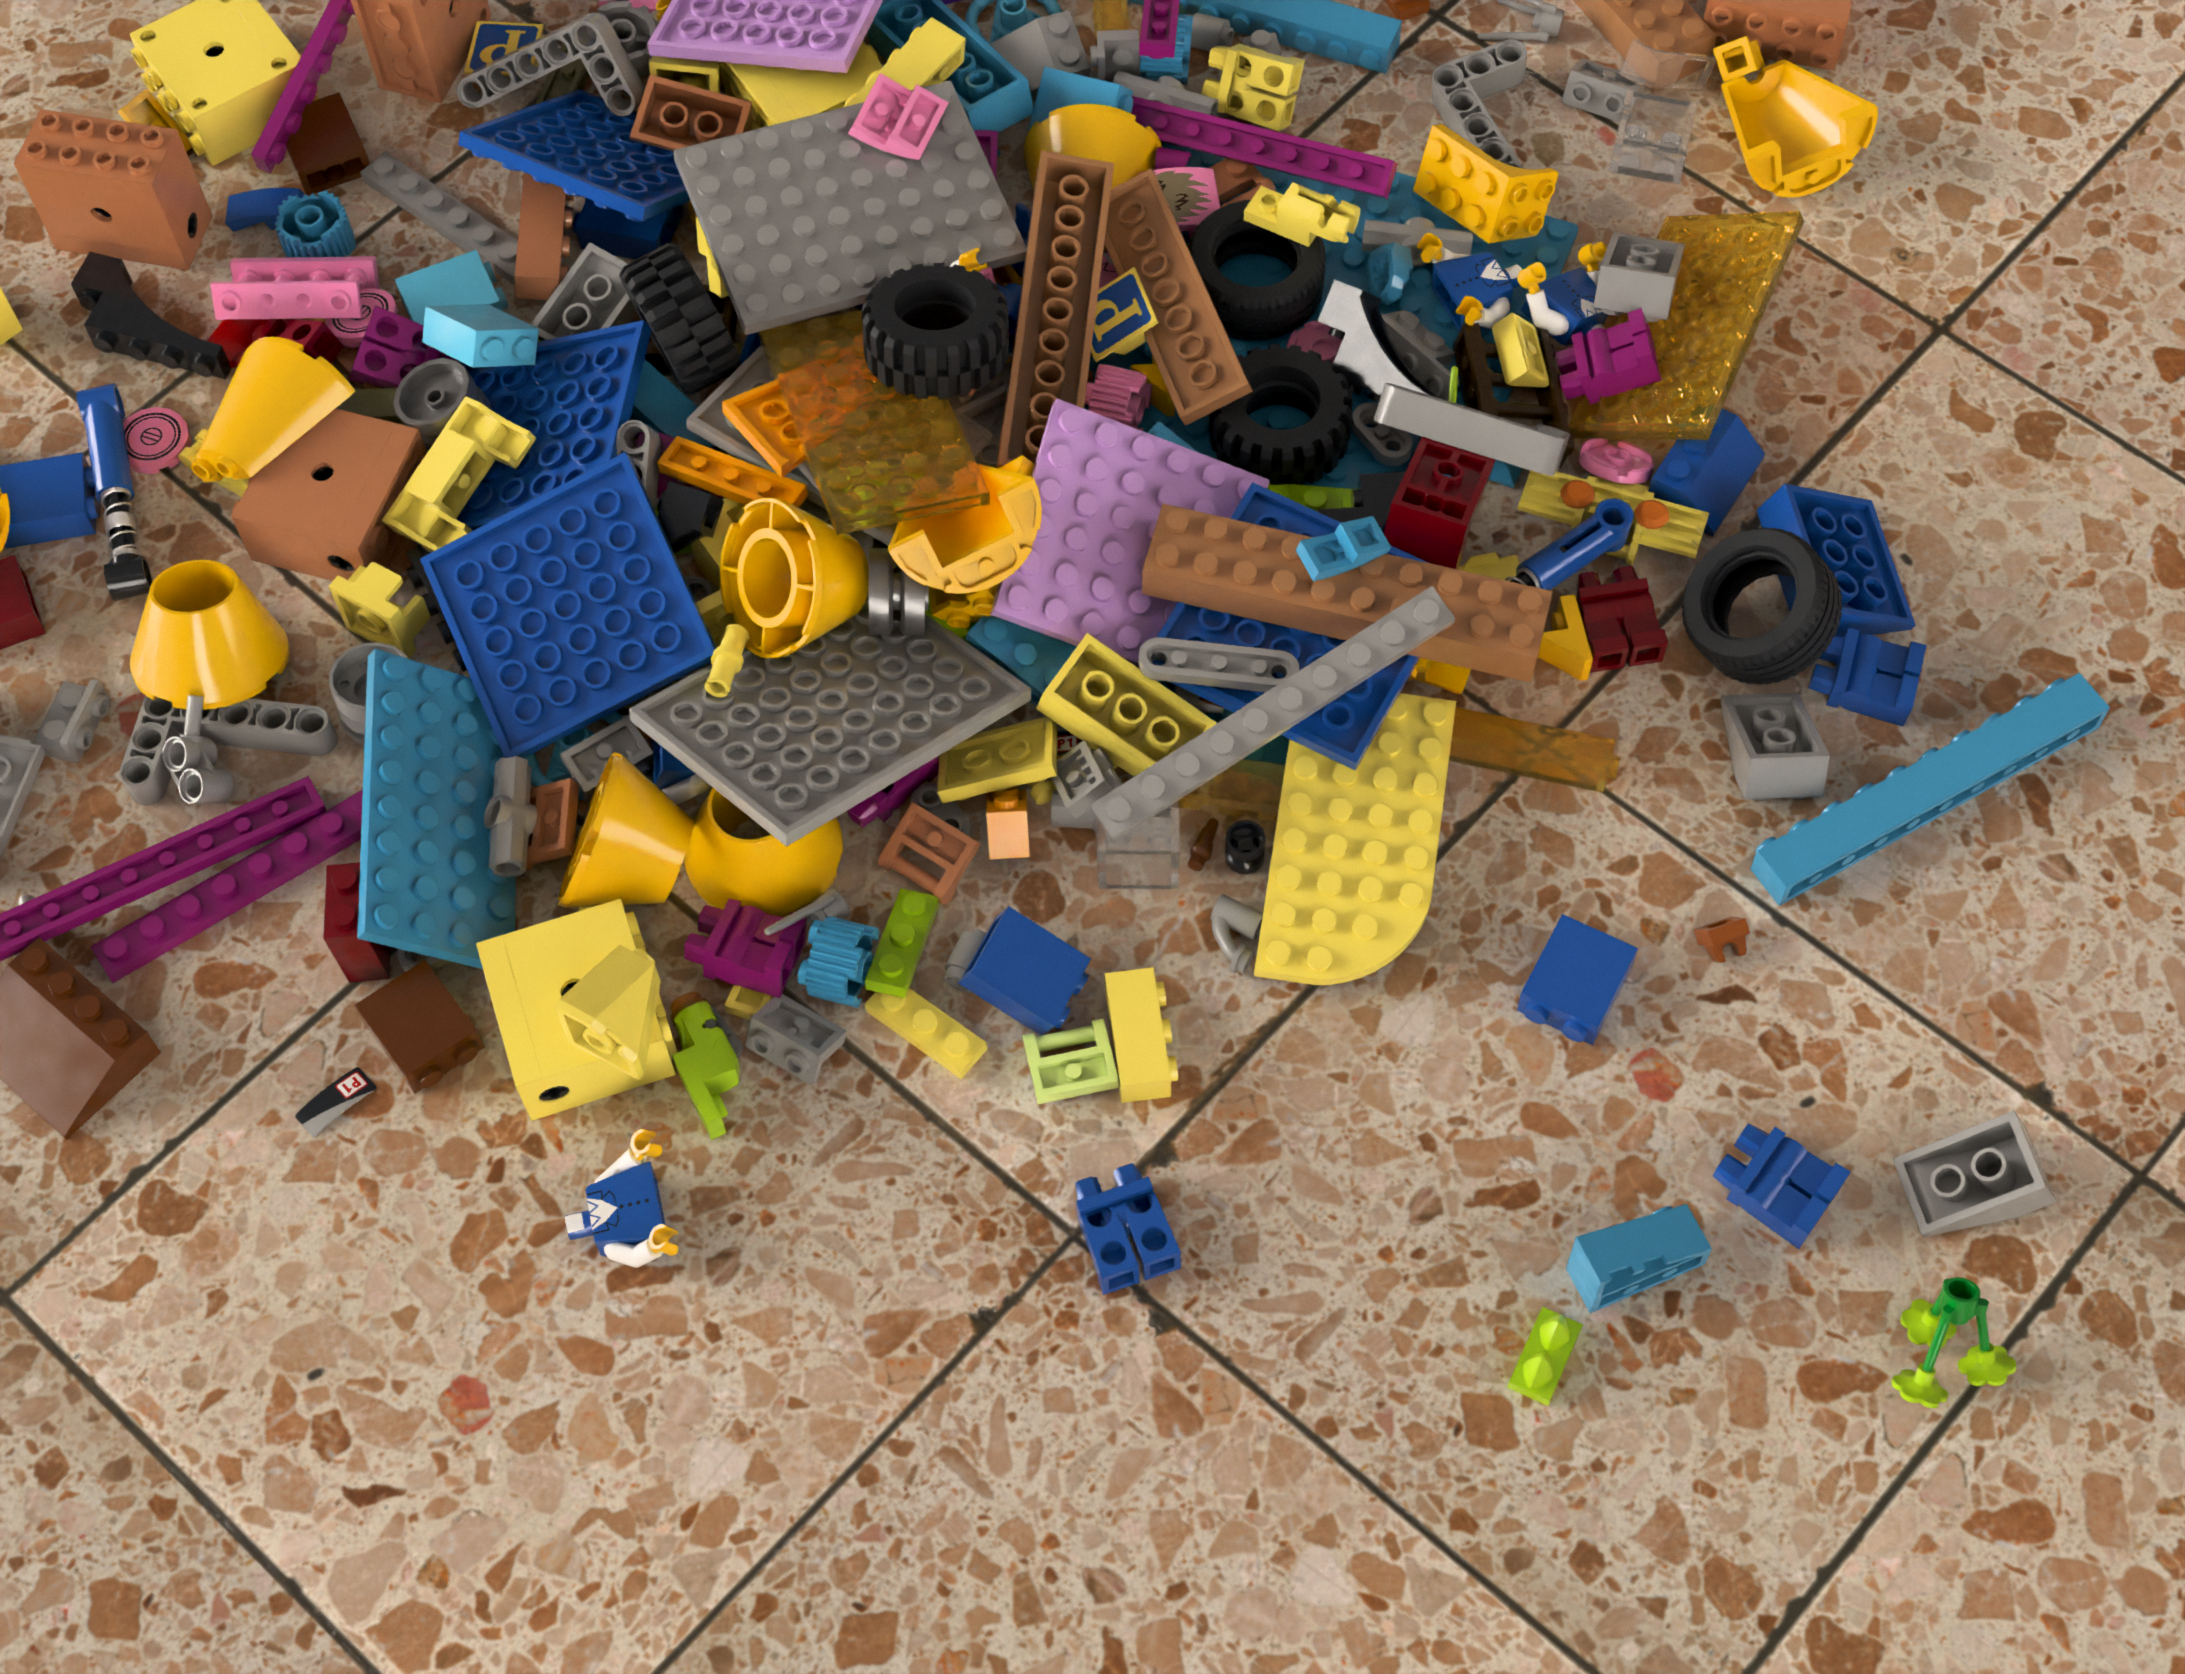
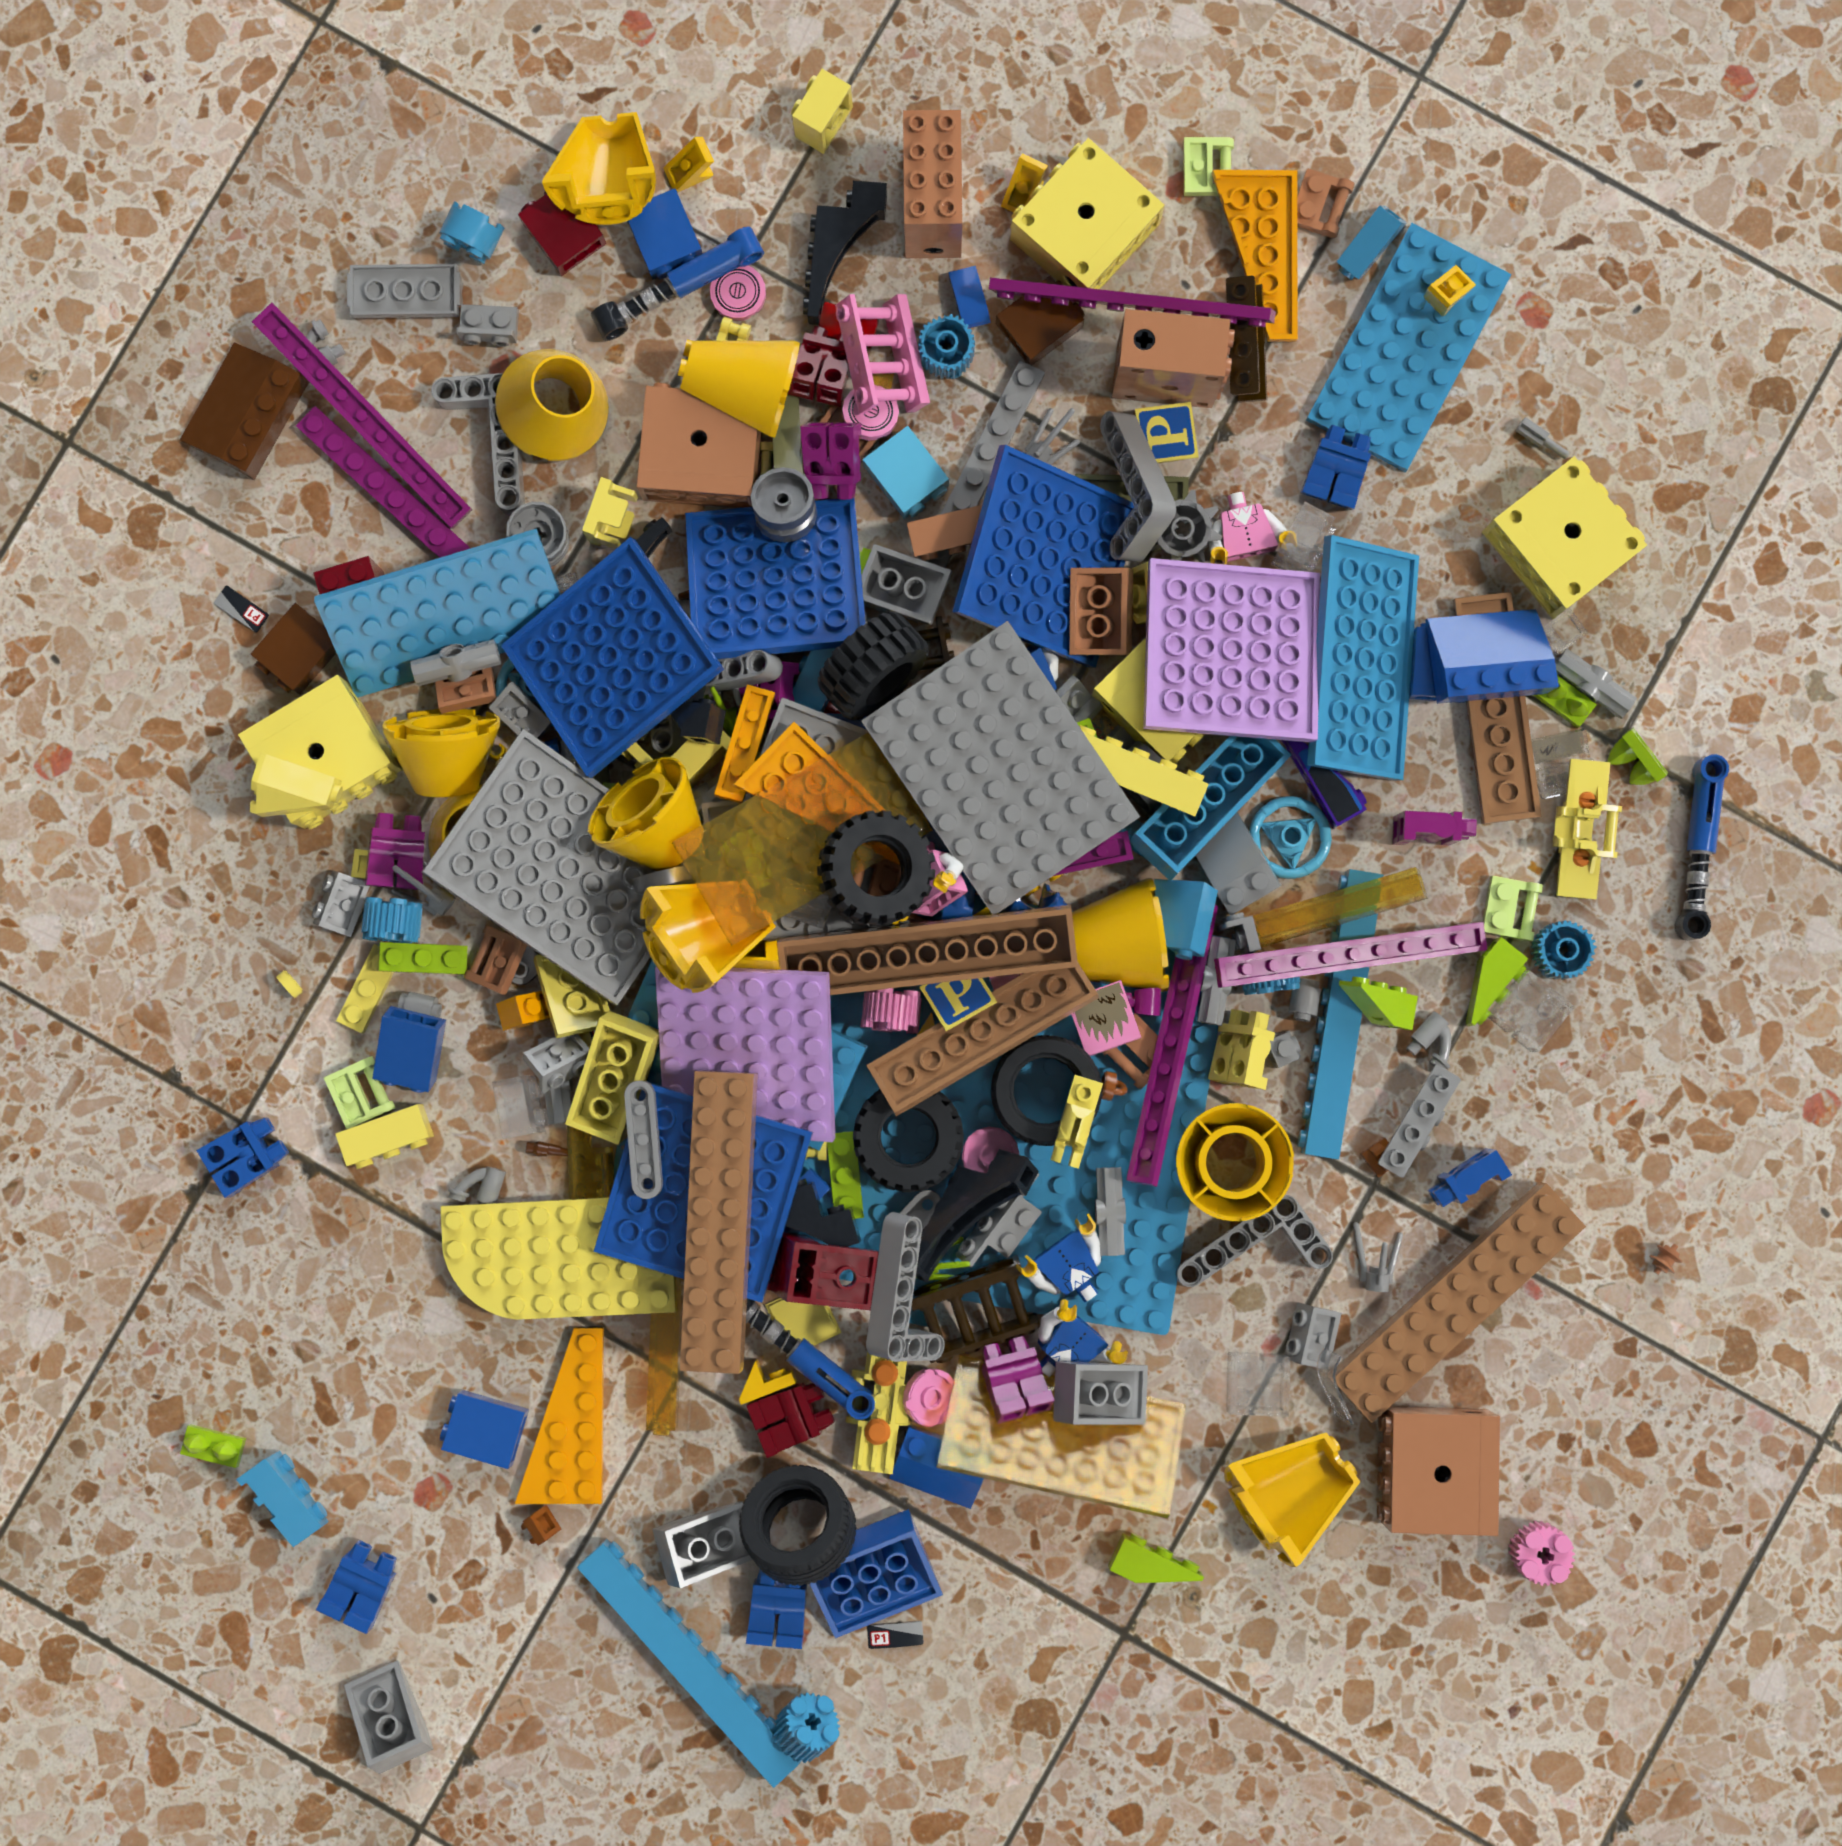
camera: 80 degrees right, 25 degrees up
(192, 761) = (459, 422): light grey beam -> none
(452, 472) = (720, 531): light yellow bracket -> none
(479, 172) = (1041, 449): none -> light grey plant
(480, 335) = (843, 515): medium azure brick -> none
(626, 1208) = (188, 828): torso -> none
(707, 1058) = (310, 851): lime plate -> none
(727, 660) = (581, 785): light yellow pin -> none
(891, 1122) = (289, 983): none -> light yellow tile
(898, 118) = (1080, 787): bright pink slope -> none
(1245, 847) = (540, 1181): black wheel -> none
(1272, 713) = (603, 1189): light grey plate -> none
(1345, 549) = (732, 1215): dark azure slope -> none
(1384, 92) = (1272, 1169): none -> yellow cone
(1389, 271) = (1070, 1194): dark azure rock -> none
(1481, 192) = (1146, 1259): yellow bracket -> none
(1520, 352) = (1010, 1309): light yellow slope -> none
(1604, 883) = (569, 1445): none -> light orange wing
(1738, 58) = (1365, 1445): yellow brick -> none
(1854, 287) = (1149, 1565): none -> lime slope
(1918, 563) = (895, 1635): none -> sticker
(1933, 1326) = (259, 1732): lime plant -> none
(2030, 653) = (806, 1727): none -> dark azure brick

